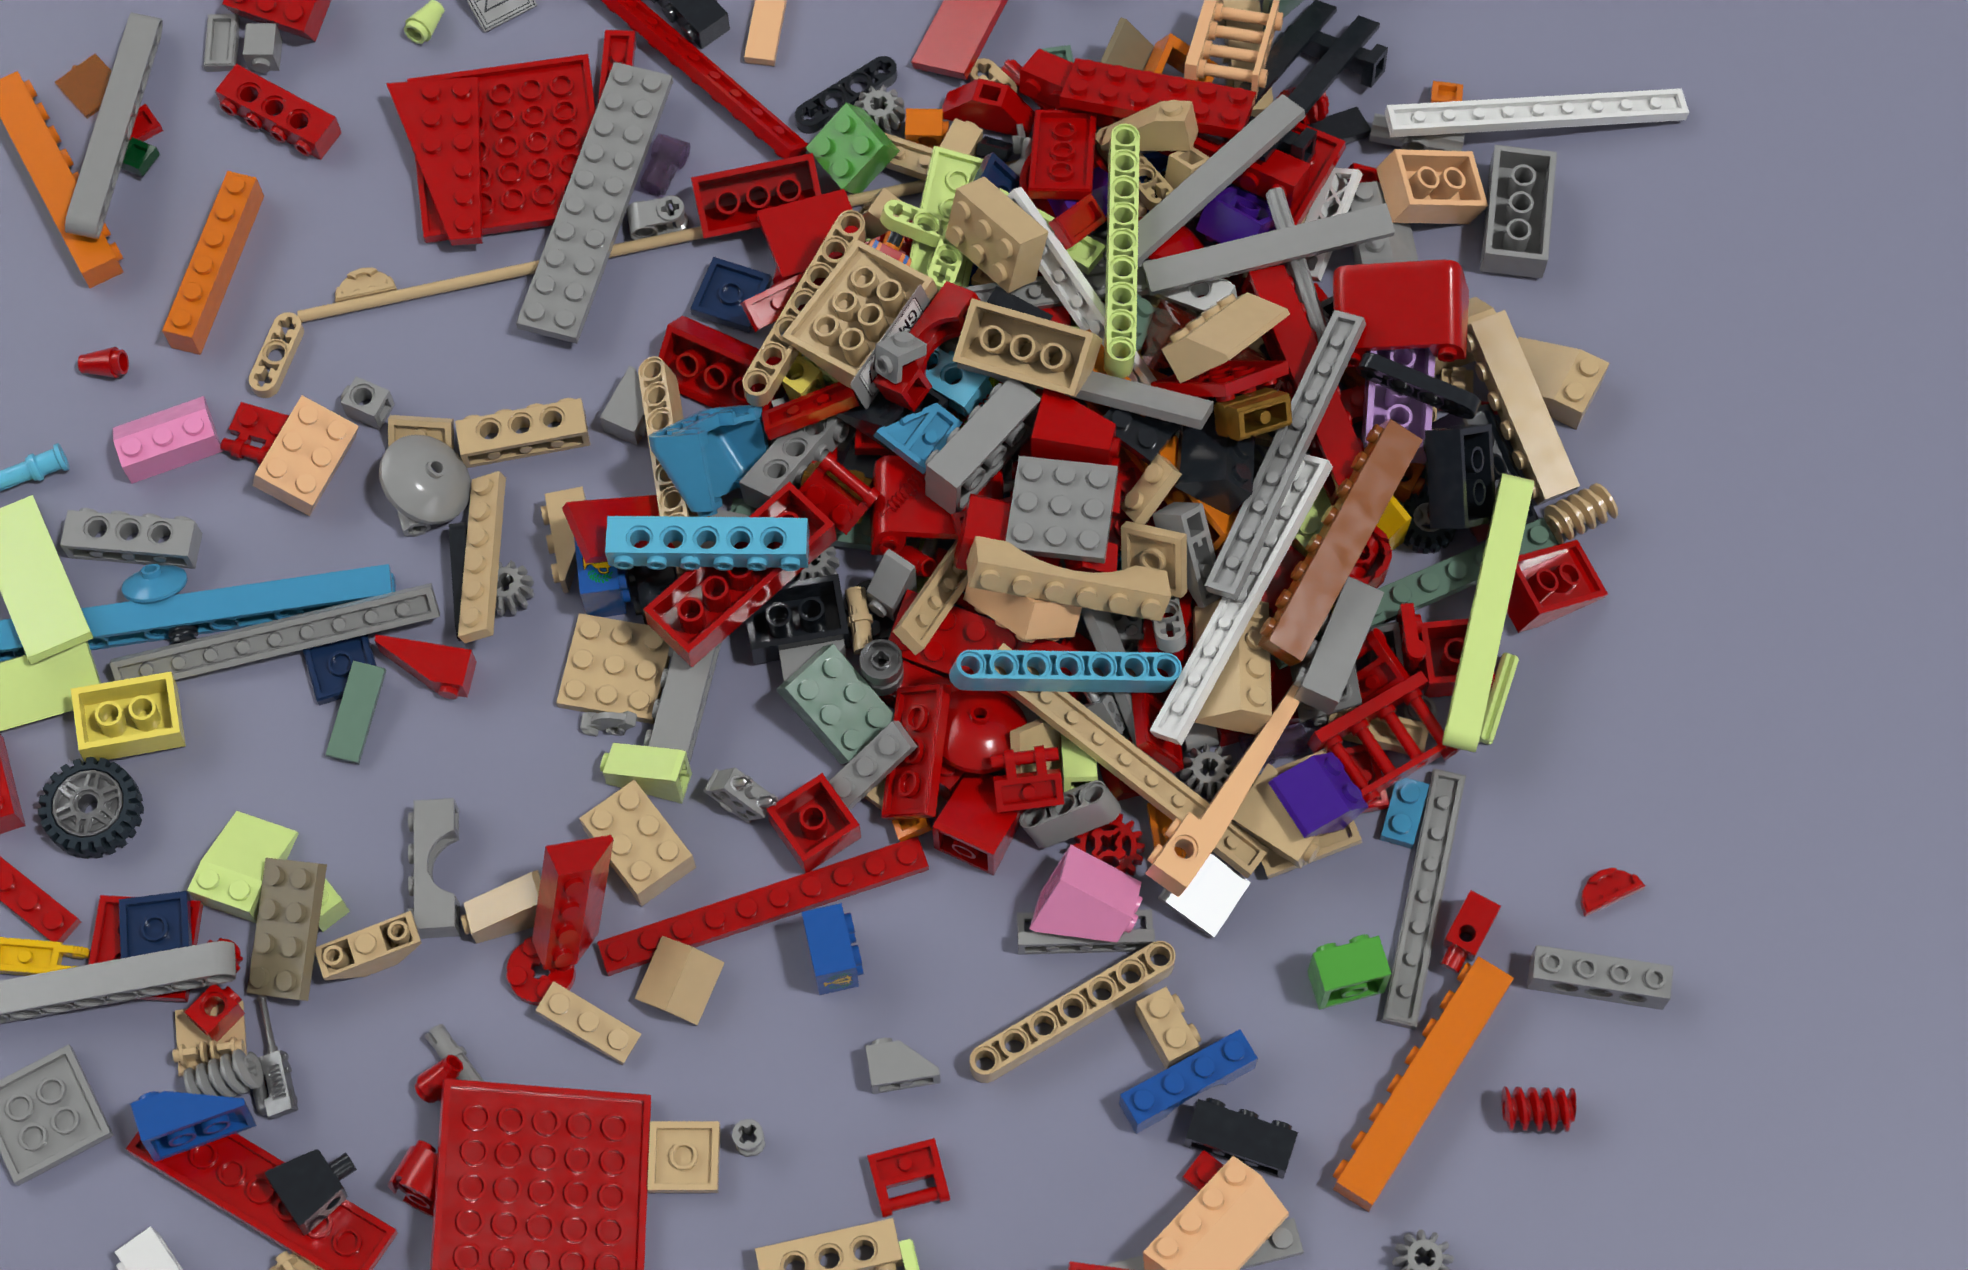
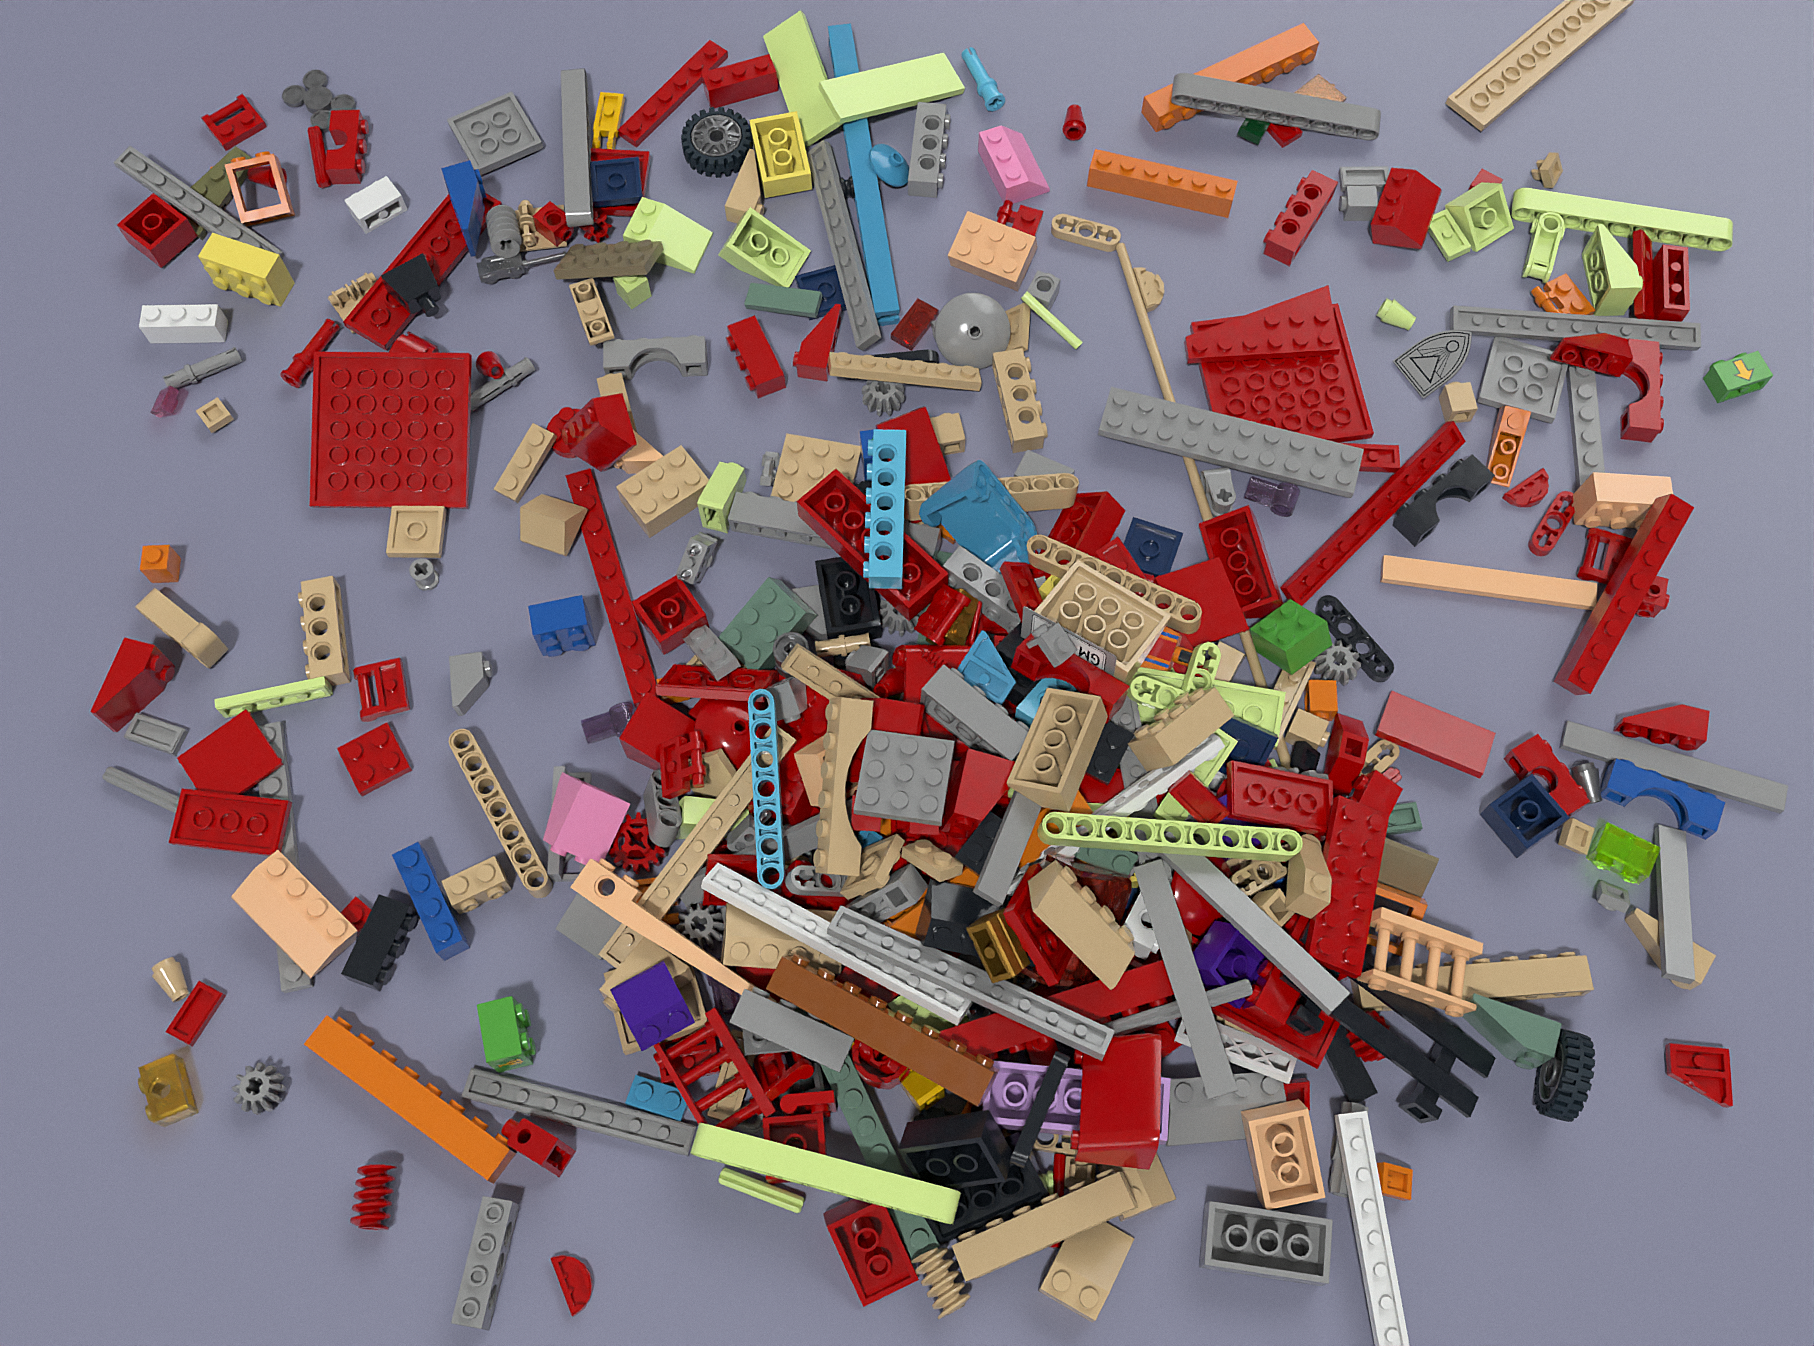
camera: 90 degrees right, 0 degrees up
(182, 763) = (745, 191): none -> tan slope
(275, 740) = (764, 250): none -> yellowish green slope
(403, 553) = (914, 324): none -> clear red plate
(411, 391) = (1051, 320): none -> yellowish green bar
(441, 743) = (755, 357): none -> red brick
(933, 665) = (789, 698): none -> light grey slope
(954, 883) = (608, 723): none -> clear purple piece
(1001, 1178) = (374, 759): none -> red plate

